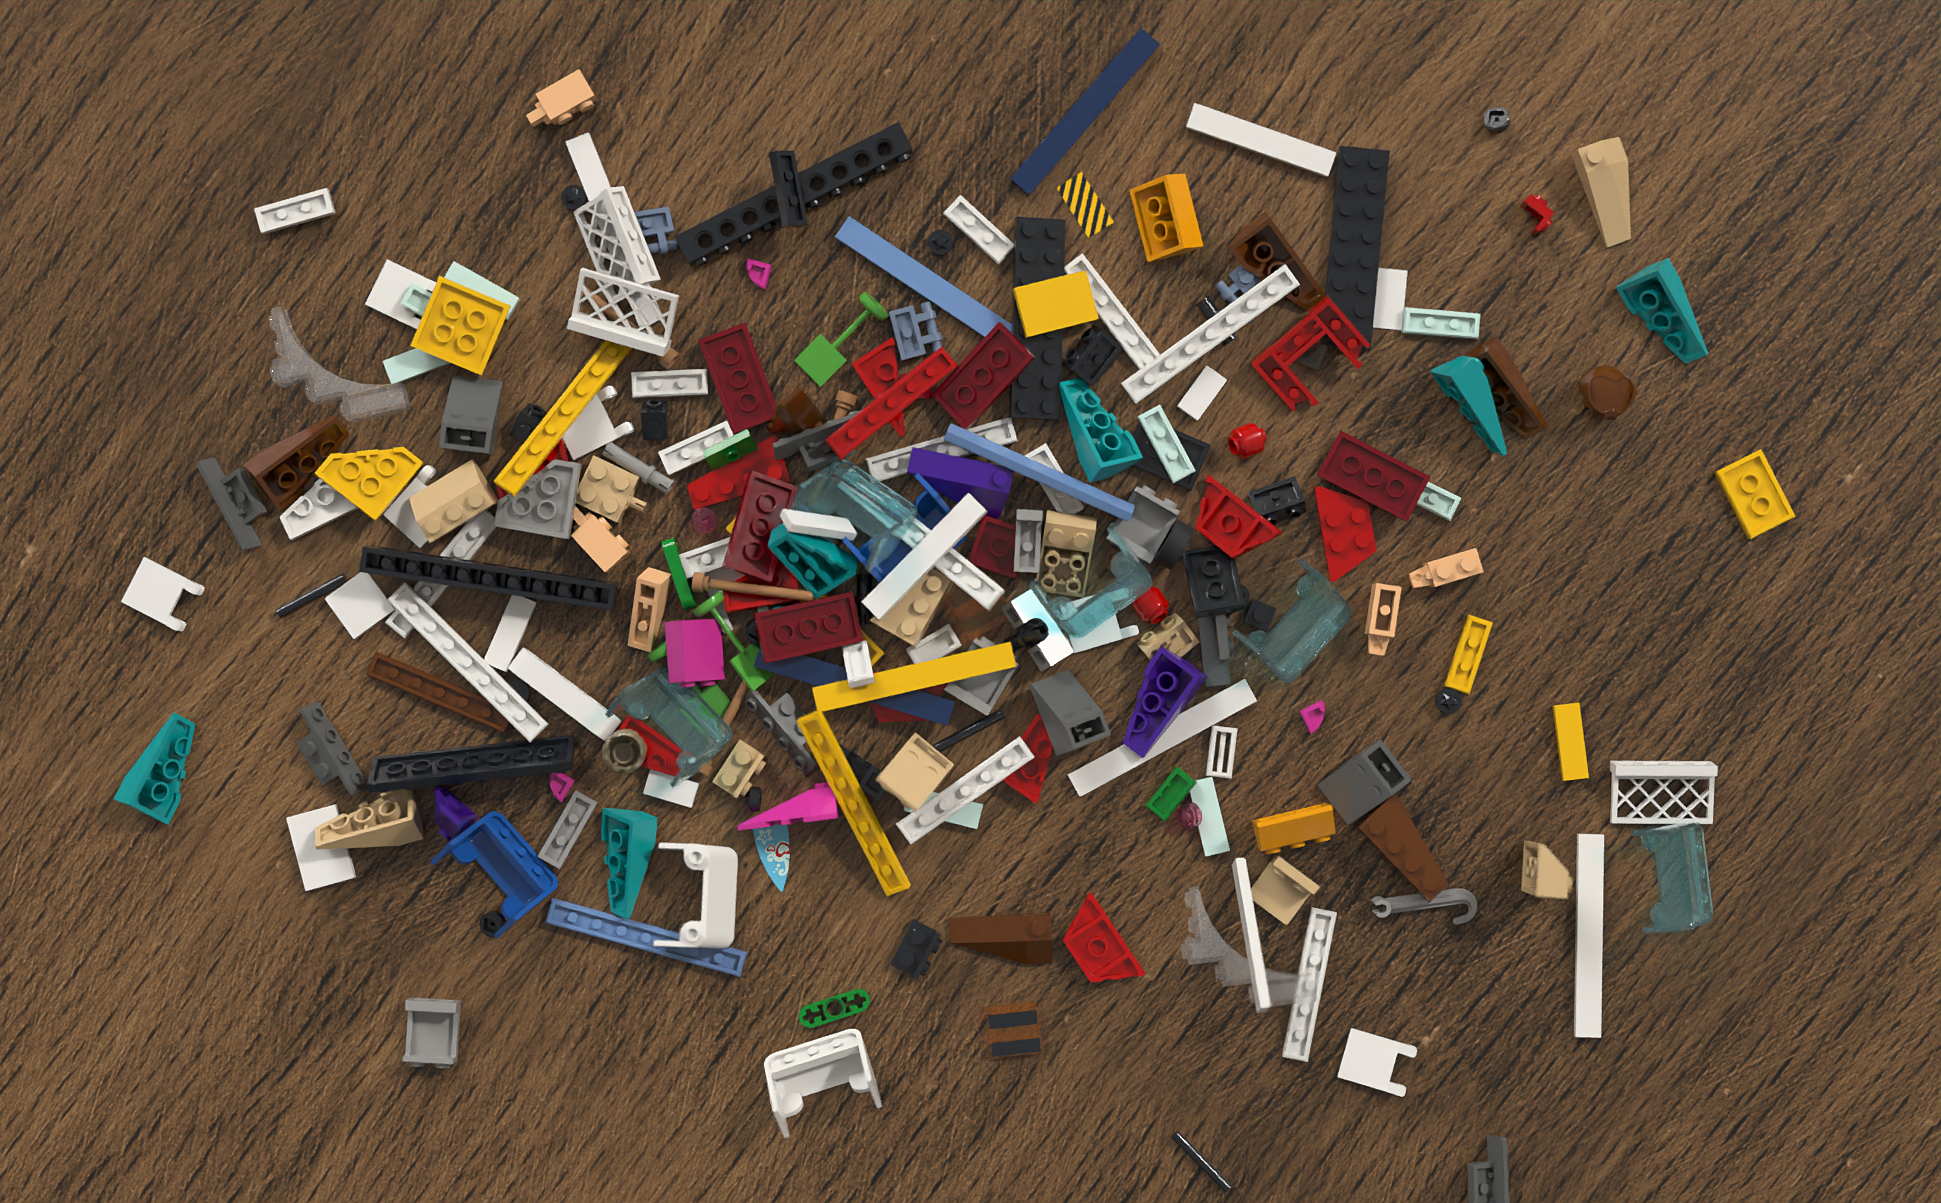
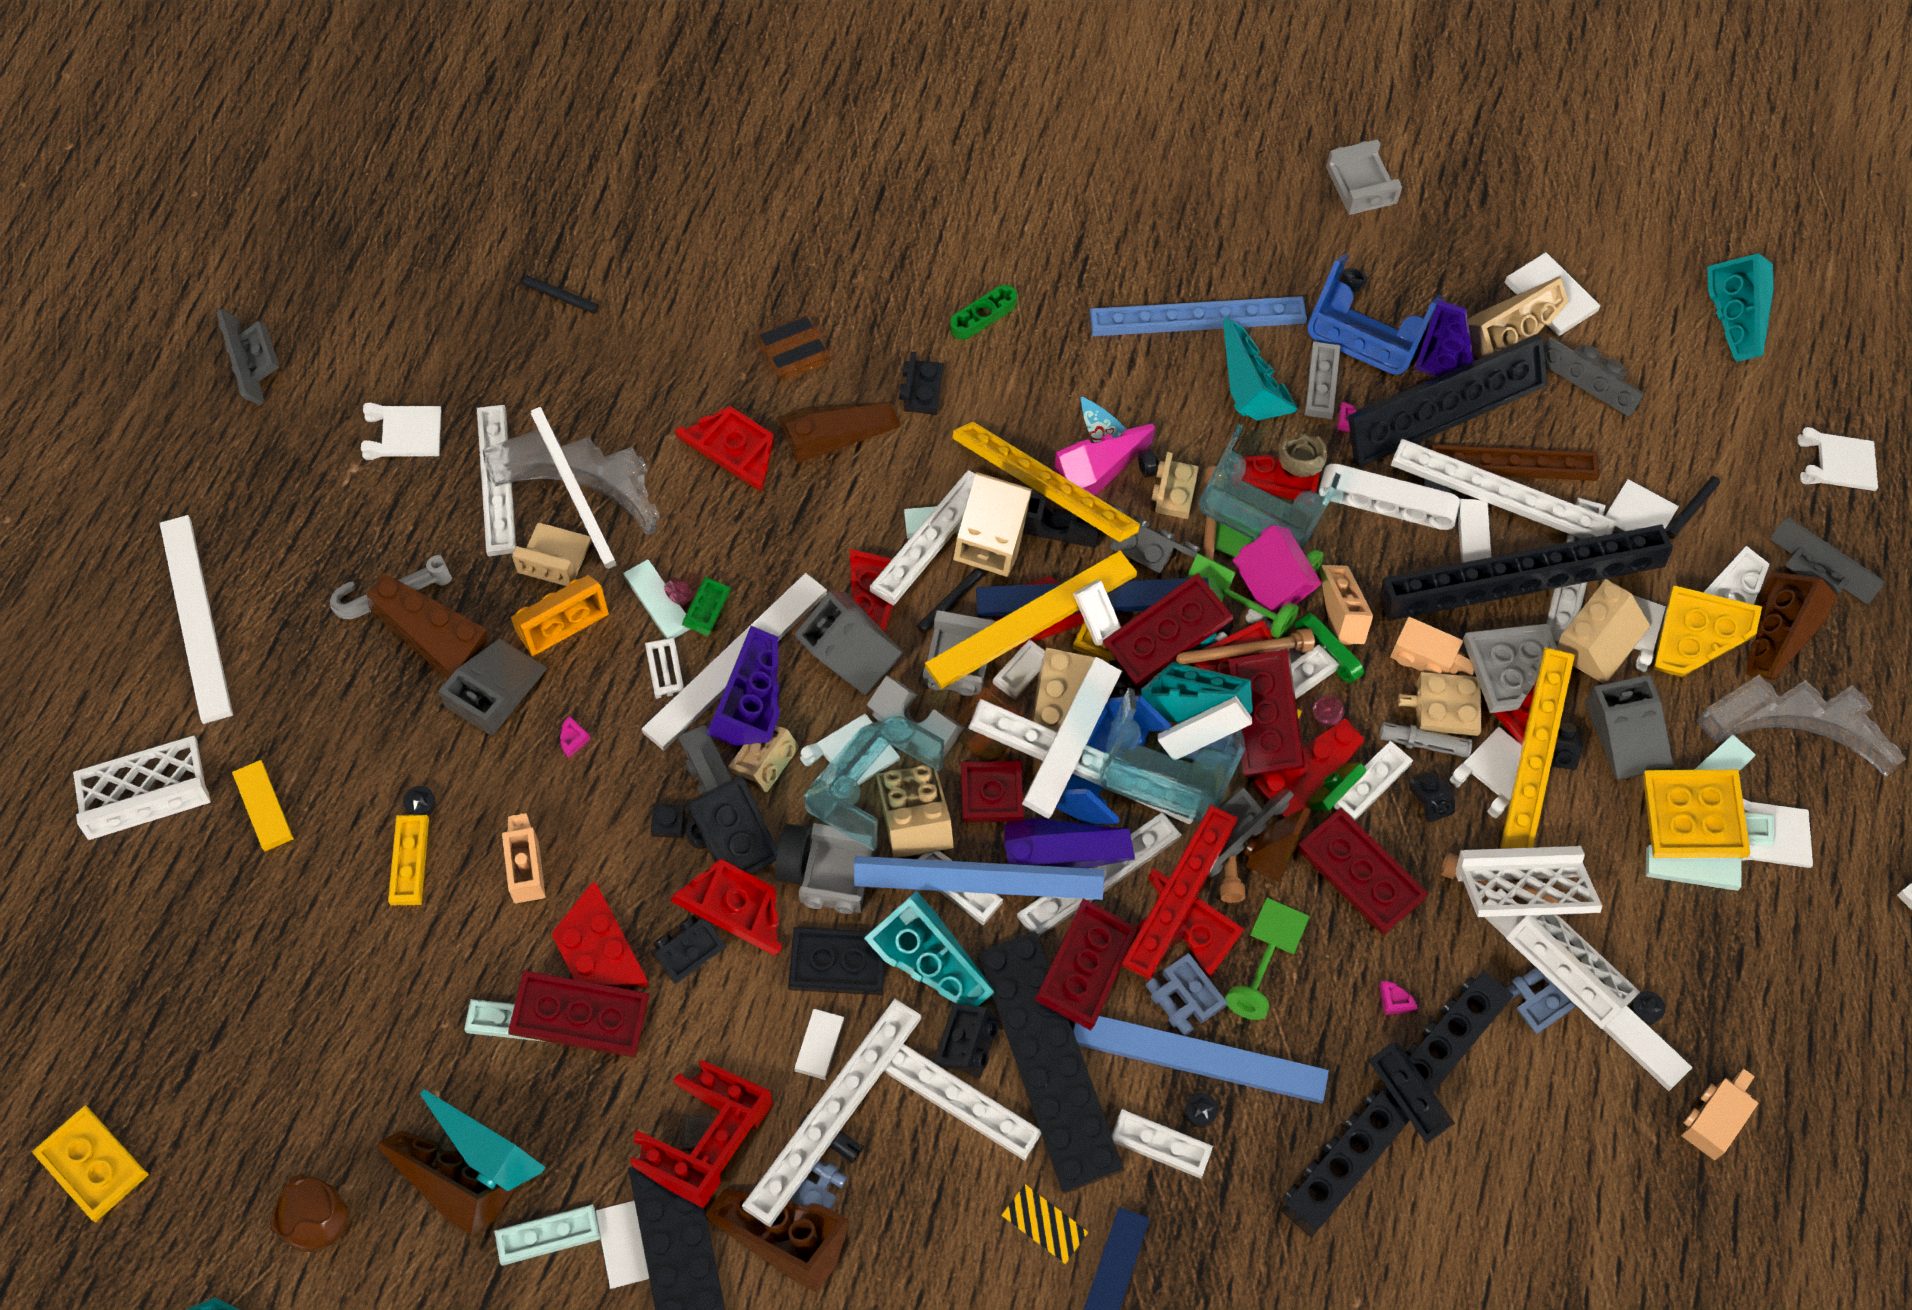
camera: 160 degrees right, 25 degrees down
(659, 786) = (1245, 446): white tile -> none
(669, 383) = (1436, 841): white tile -> none
(718, 897) = (1153, 383): white windscreen -> none
(817, 1067) = (983, 258): white windscreen -> none
(1027, 541) = (967, 813): light grey bracket -> none
(1027, 636) = (924, 701): black pin -> none
(1055, 303) = (1034, 1078): yellow tile -> none
(1151, 606) = (793, 784): red head -> none
(1166, 217) = (937, 1239): light orange slope -> none
(1166, 444) = (841, 966): light aqua tile -> none
(1247, 440) = (746, 1003): red head -> none
(1302, 630) = (617, 811): clear light blue windscreen -> none
(1447, 569) = (458, 938): light nougat hinge -> none
(1543, 872) = (259, 641): tan slope -> none
(1681, 876) = (96, 697): clear light blue windscreen -> none

